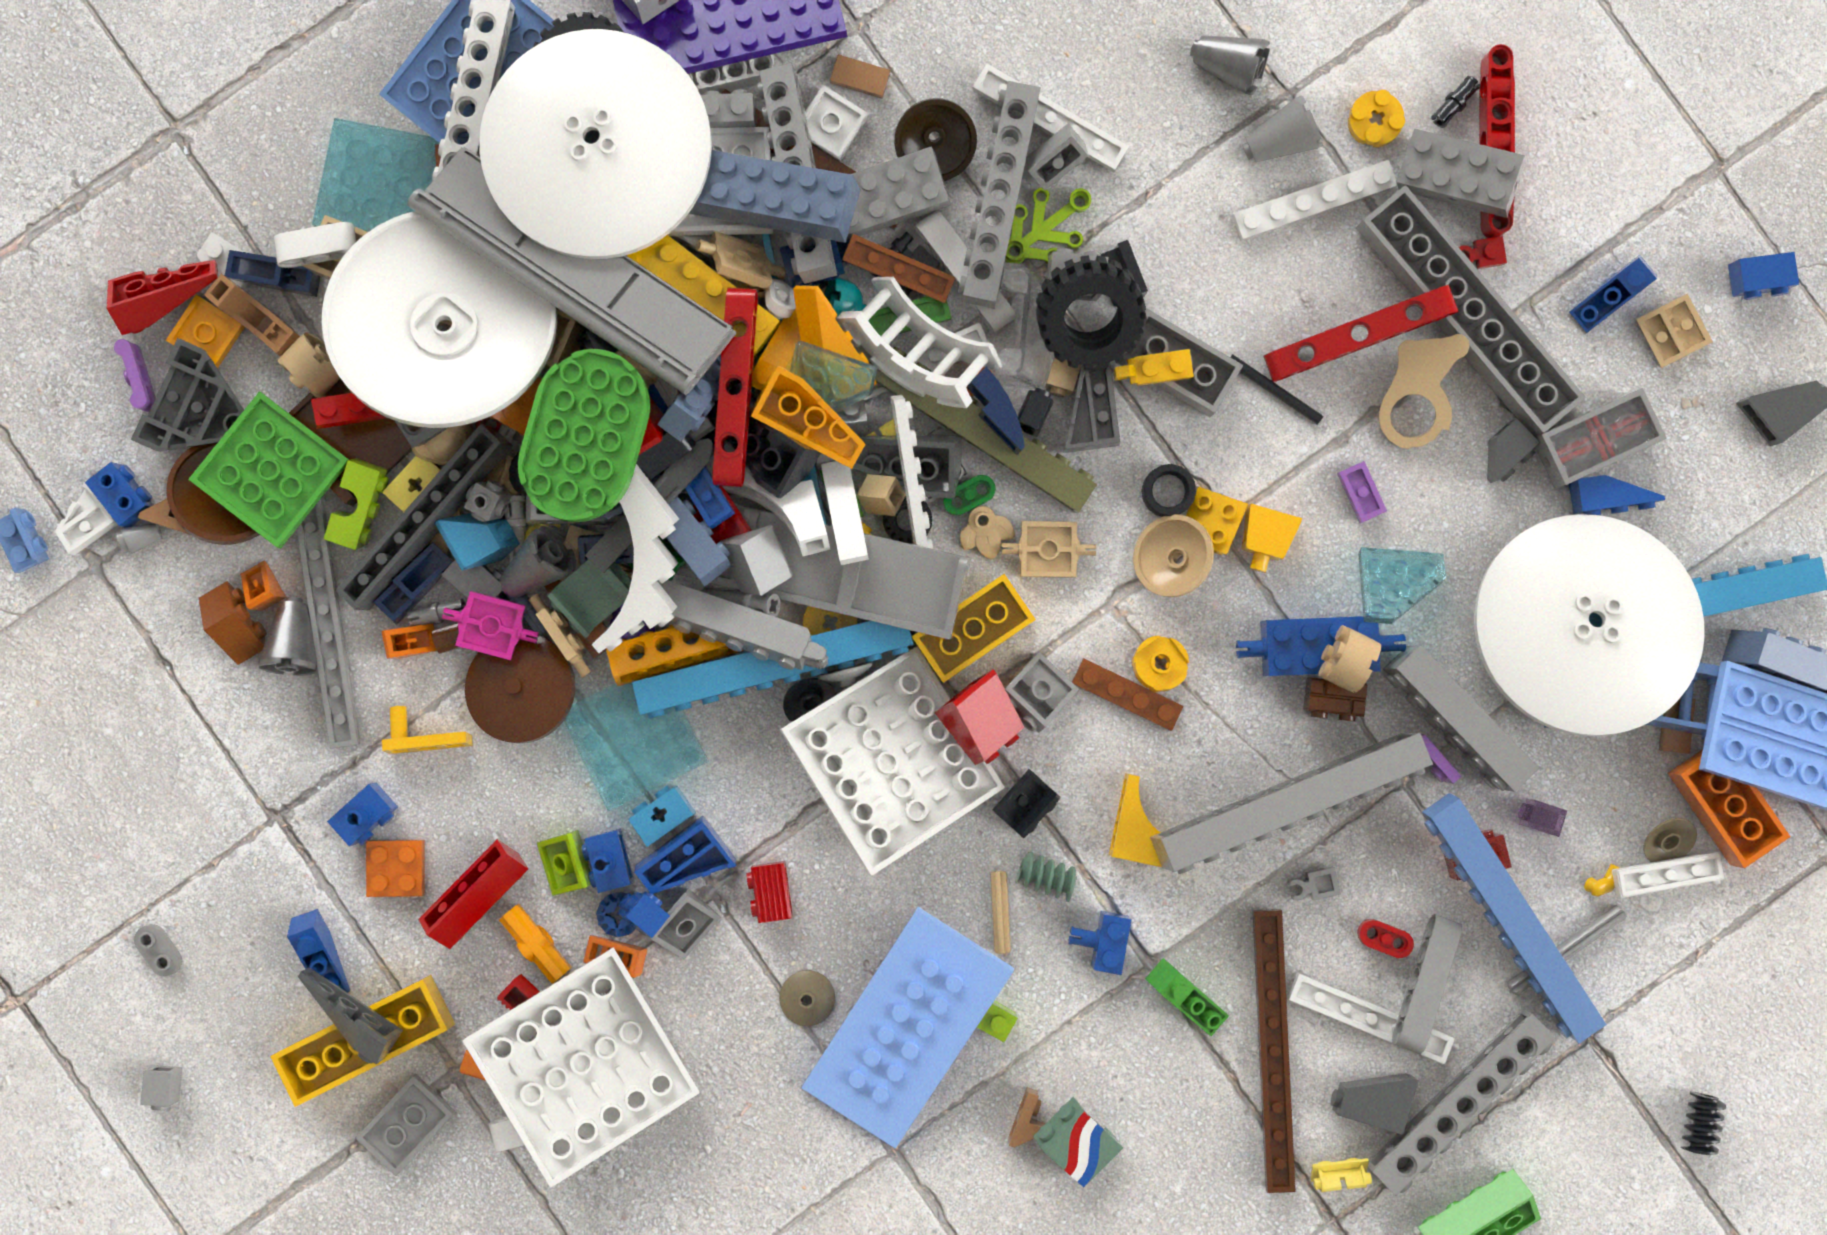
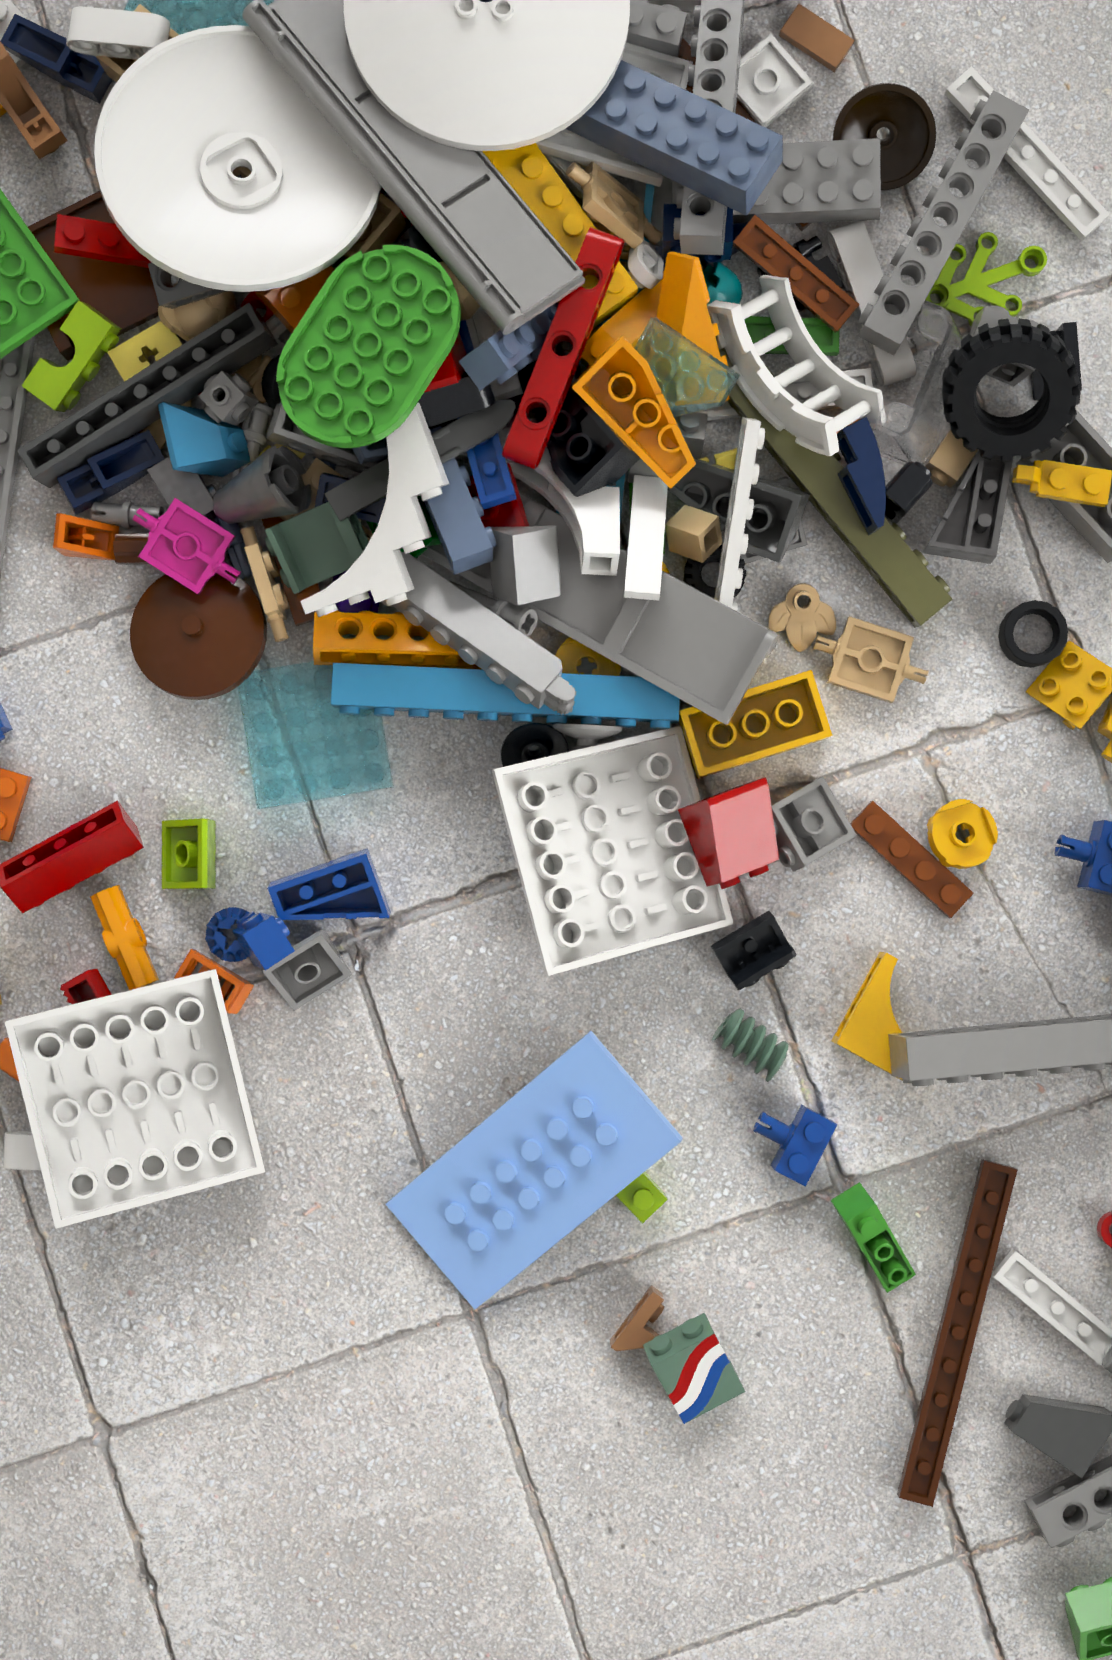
camera: 15 degrees right, 0 degrees up
(310, 365) = (69, 176): tan brick -> none
(403, 744) = (40, 655): yellow piece -> none
(608, 861) = (239, 866): blue brick -> none
(677, 810) = (339, 833): dark azure brick -> none
(770, 892) = (419, 963): red brick -> none
(812, 984) = (428, 1083): dark tan dish -> none
(970, 498) = (795, 568): green plate -> none
(1000, 912) = (683, 1069): tan axle -> none
(1056, 157) = (1022, 199): light grey brick -> none
(1158, 552) = (1011, 693): tan dish -> none
(1319, 883) = (1070, 1152): light grey plate -> none
(1327, 1174) = (977, 1499): light yellow hinge -> none

